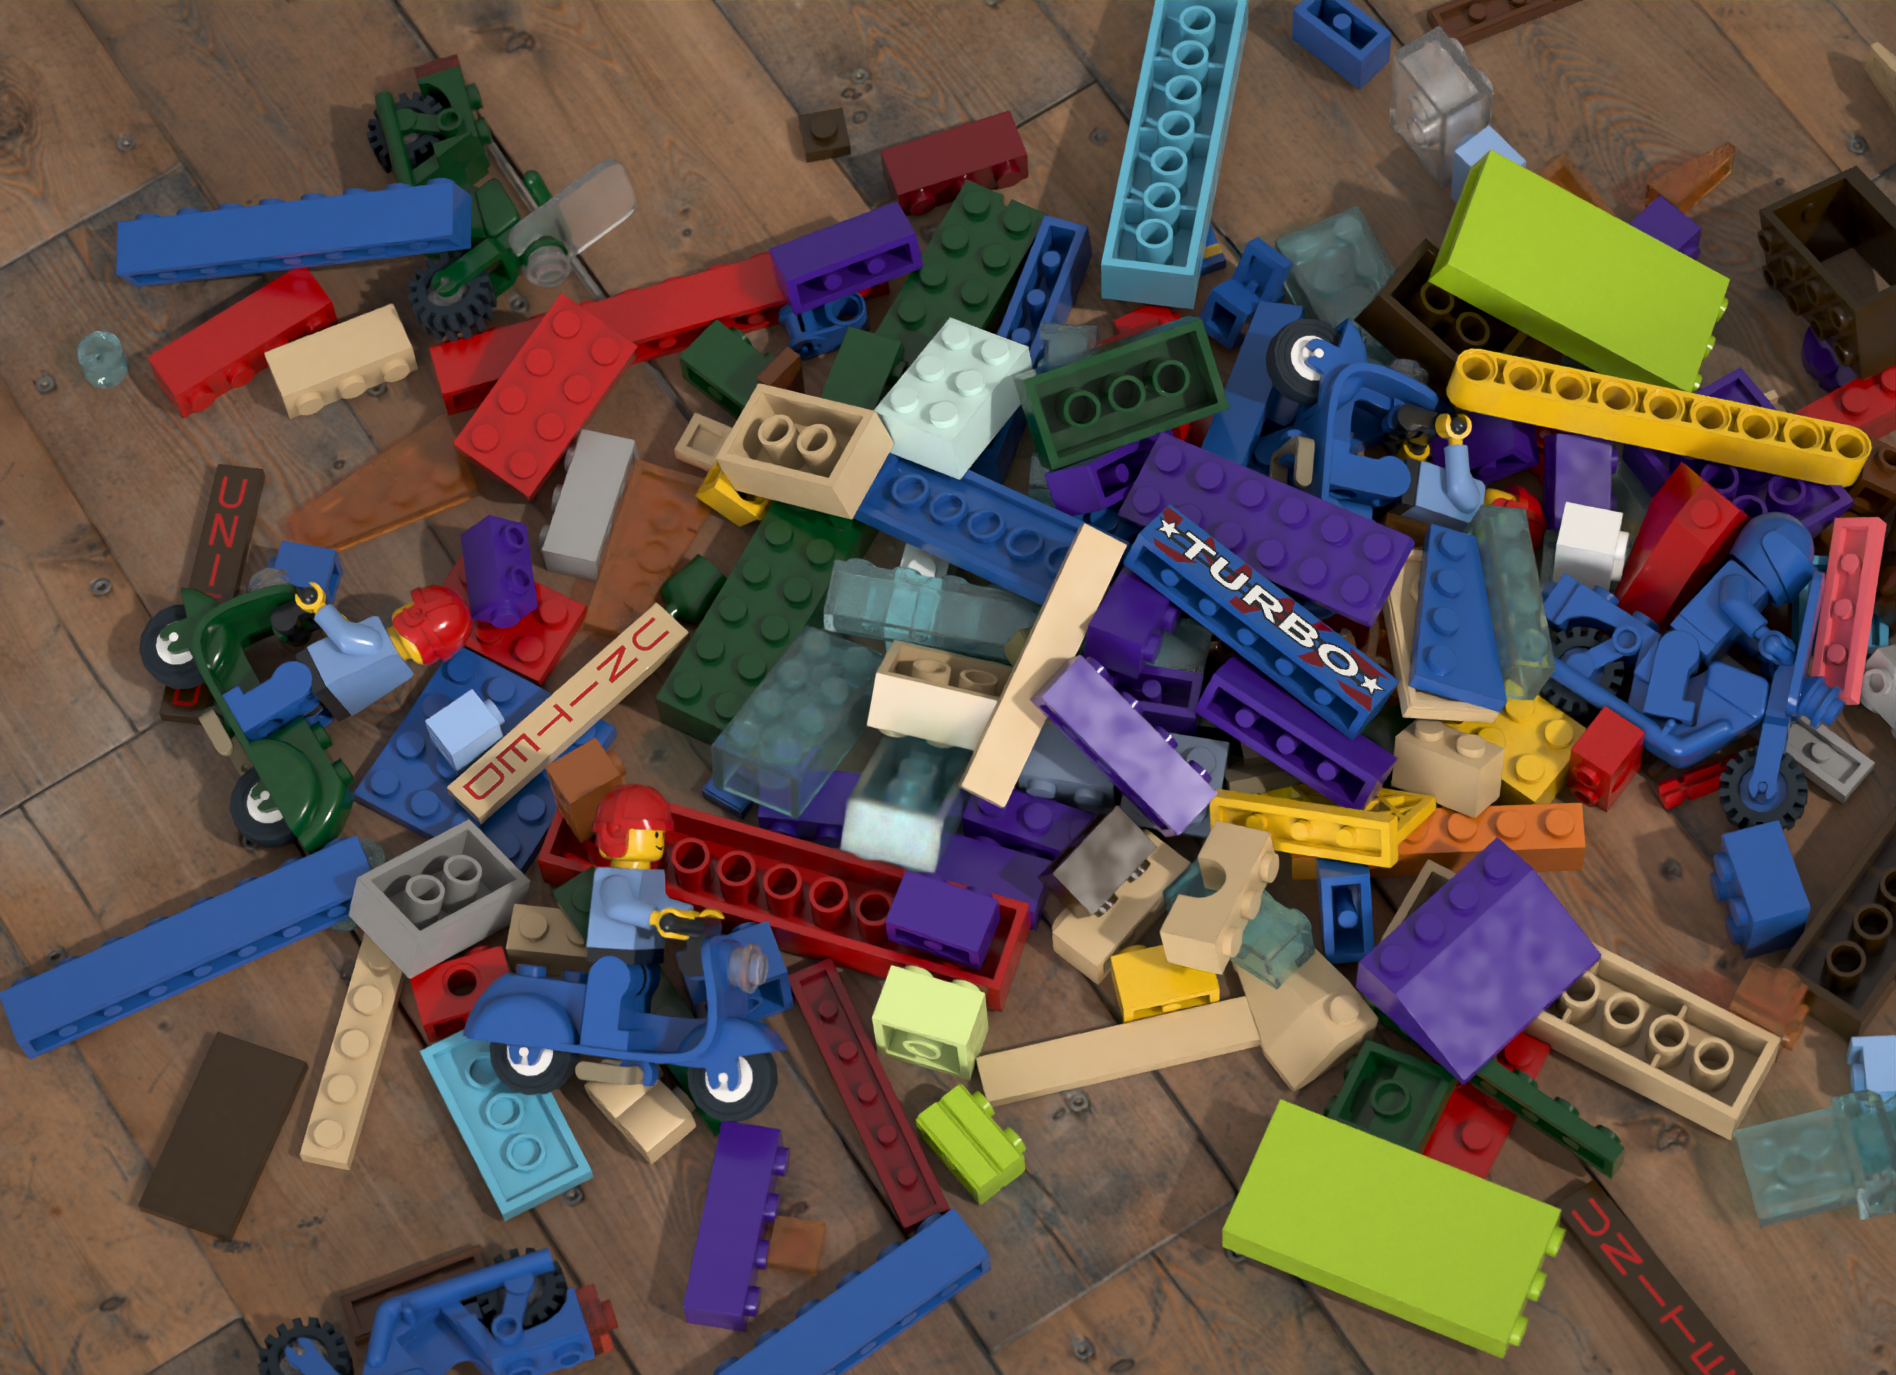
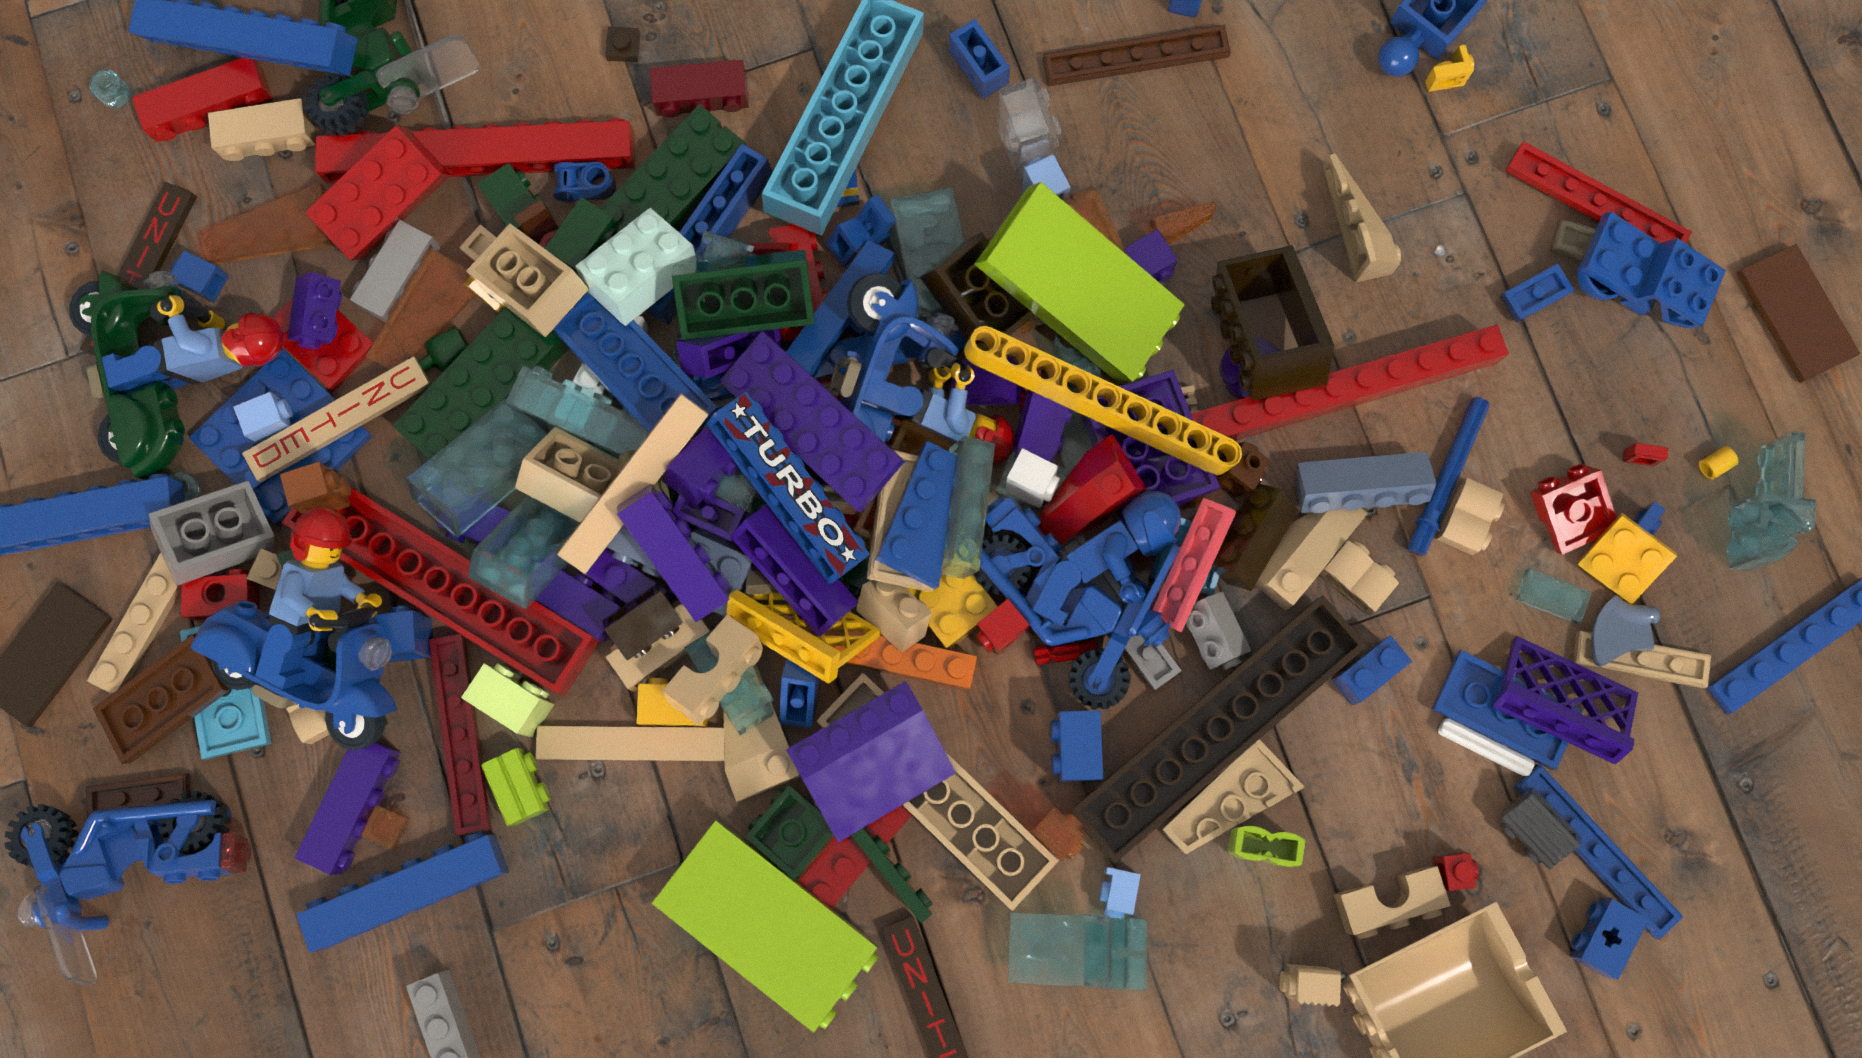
camera: 10 degrees right, 15 degrees up
(423, 1145) = (159, 701): none -> reddish brown plate
(846, 258) = (599, 143): dark purple brick -> none
(943, 918) = (528, 638): dark purple brick -> none

